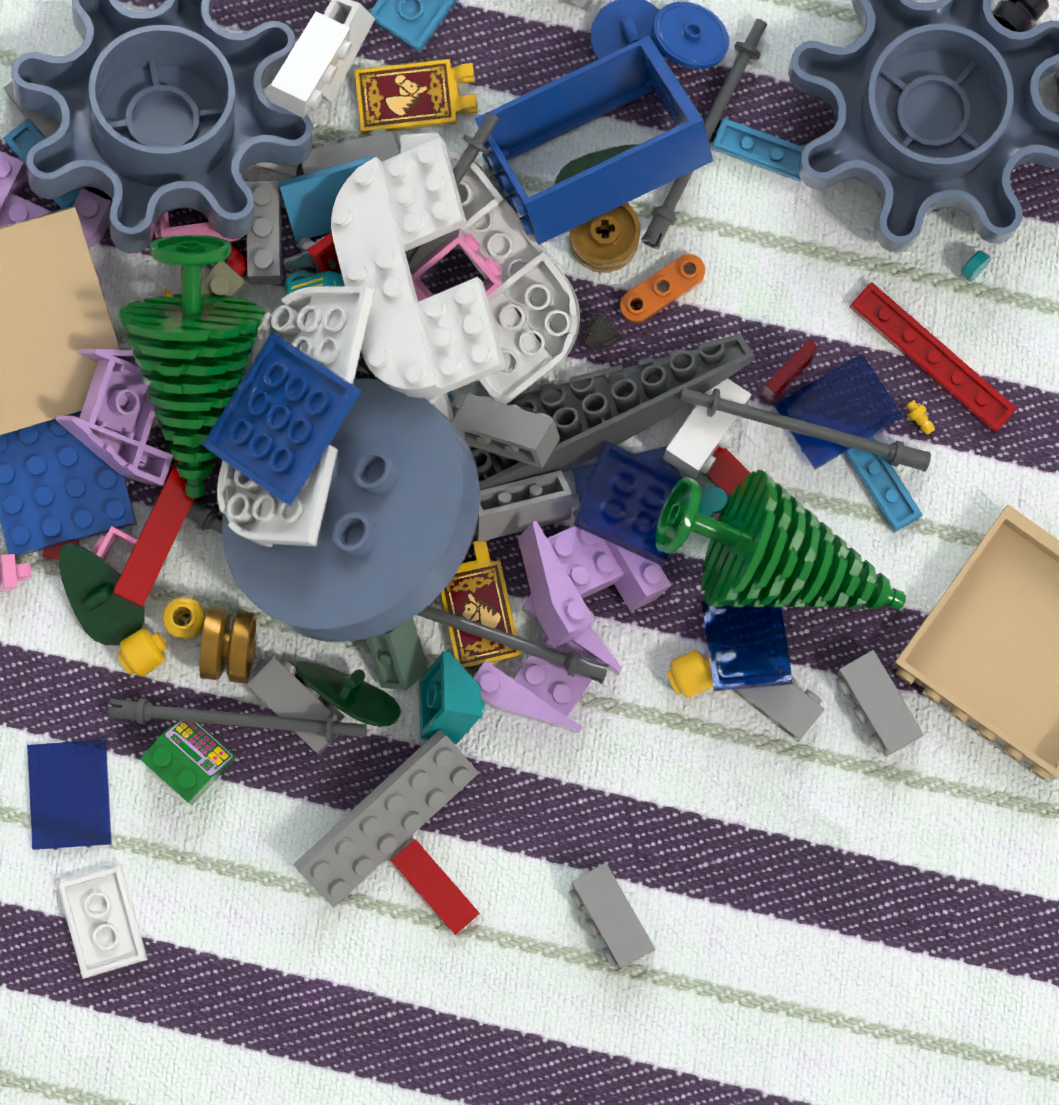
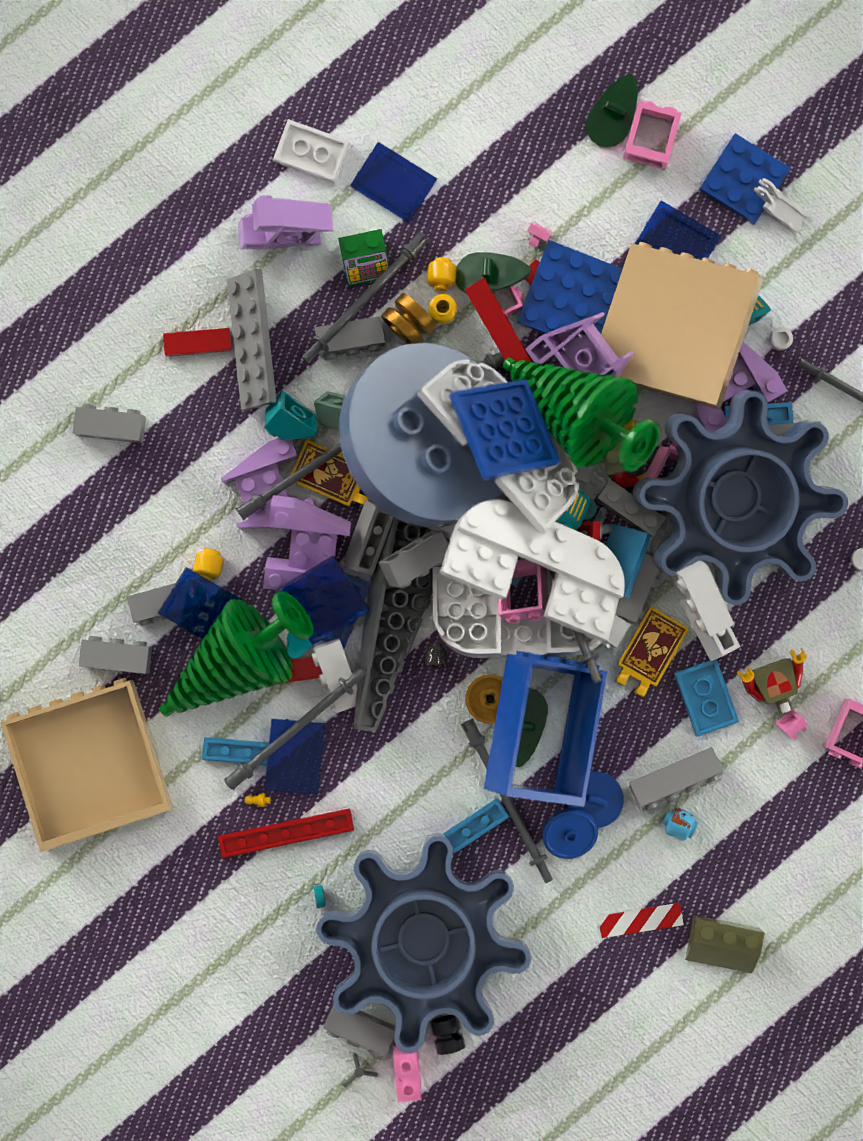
camera: 125 degrees right, 5 degrees up
(219, 877) = (284, 223): none -> lavender wedge
(351, 694) = (333, 369): dark green shield -> none
(654, 300) = (436, 720): orange plate -> none
(789, 371) = (334, 743): dark red tile -> none

